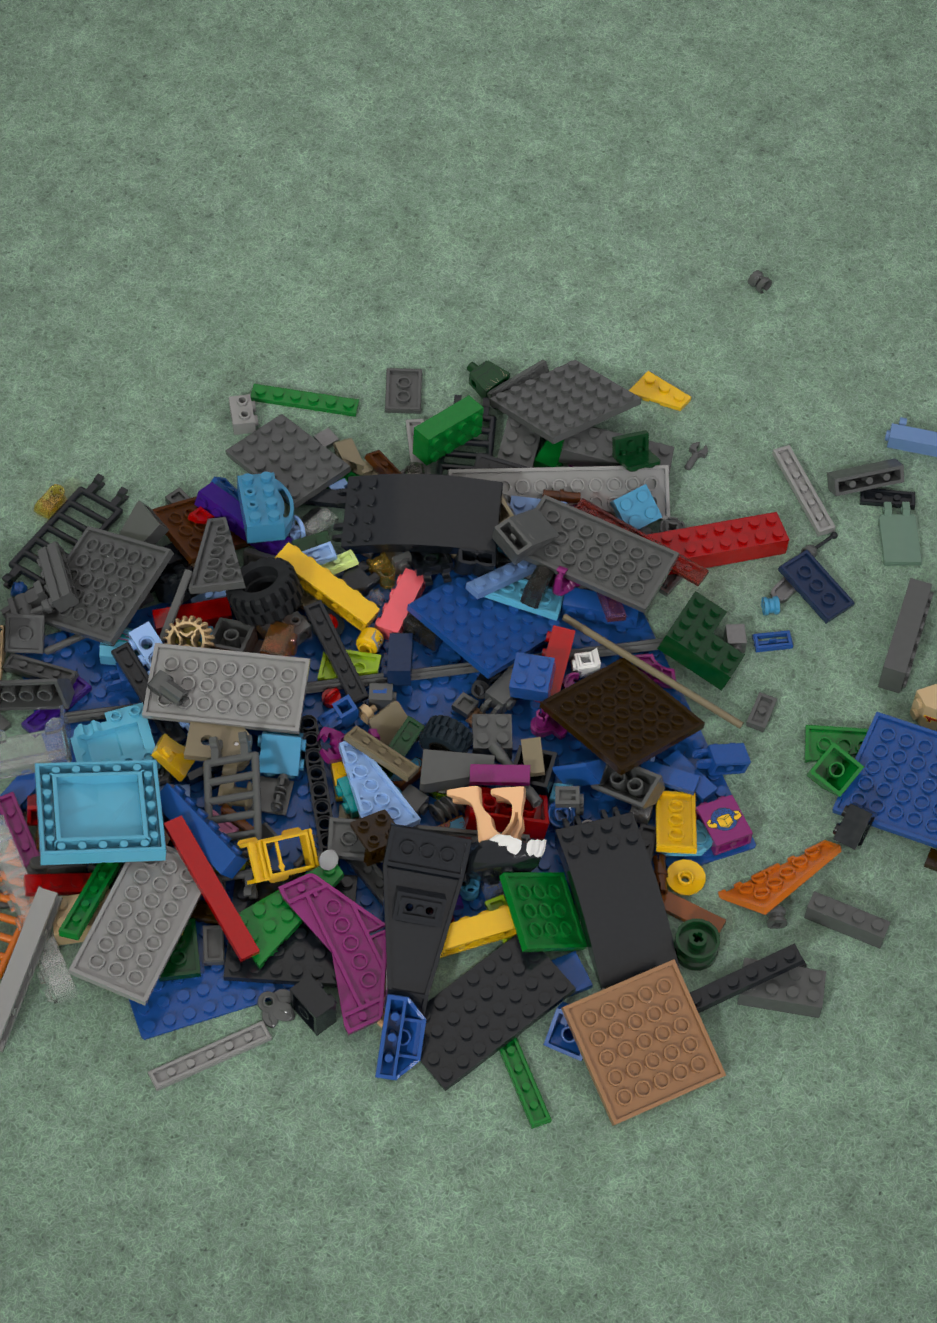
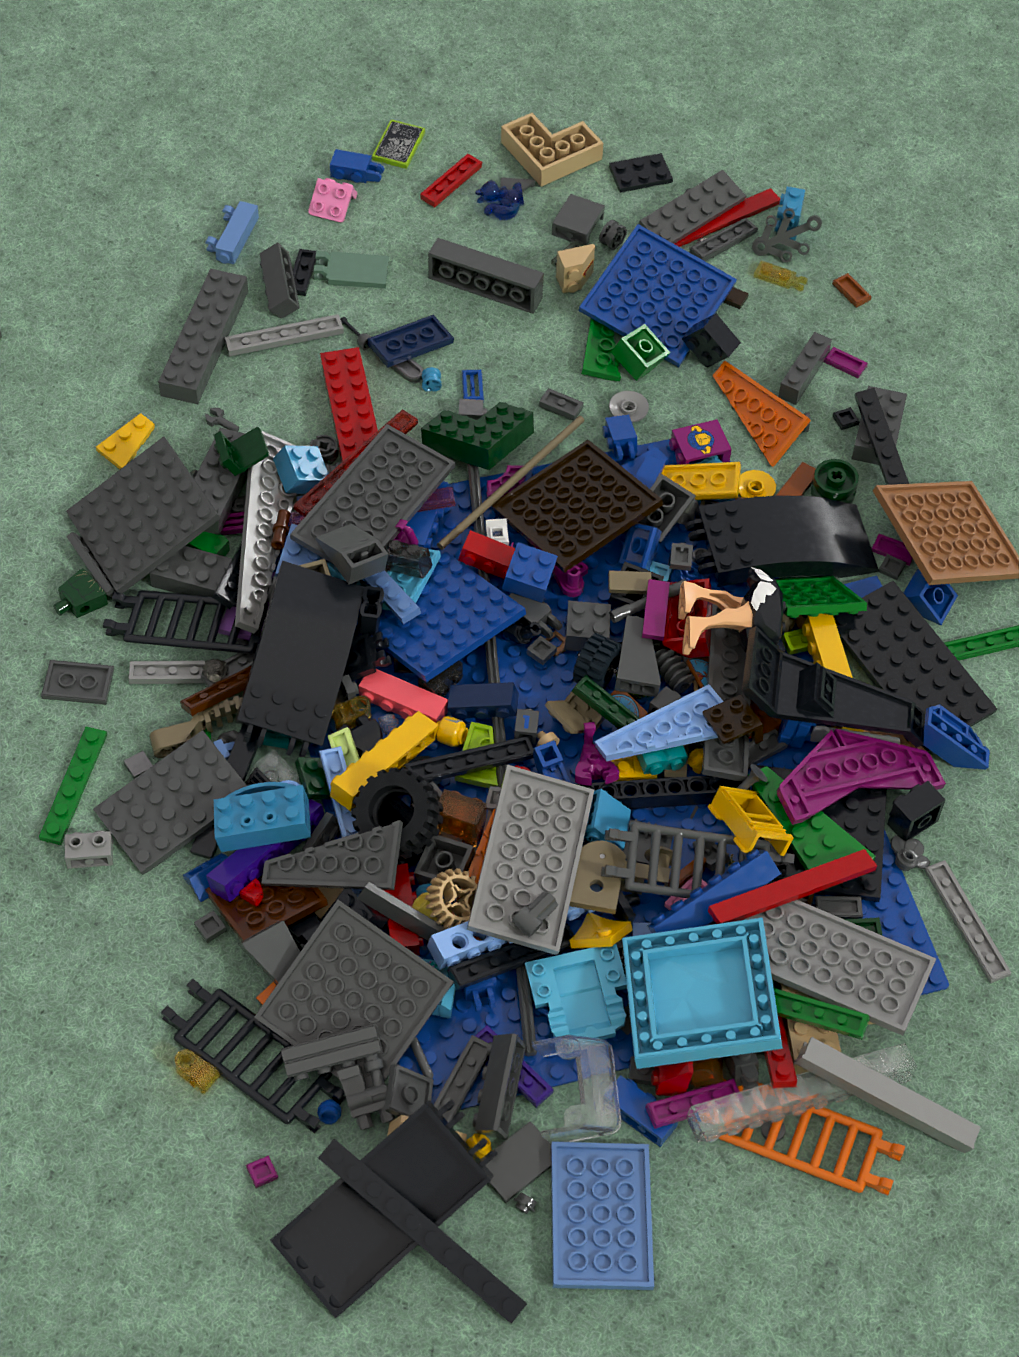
camera: 85 degrees left, 0 degrees up
(381, 753) = (620, 717): dark tan tile -> none
(447, 430) = (174, 622): green brick -> none
(767, 759) = (631, 400): none -> light grey dish
(782, 427) = (203, 336): none -> dark grey brick
(868, 962) = (845, 362): none -> magenta tile

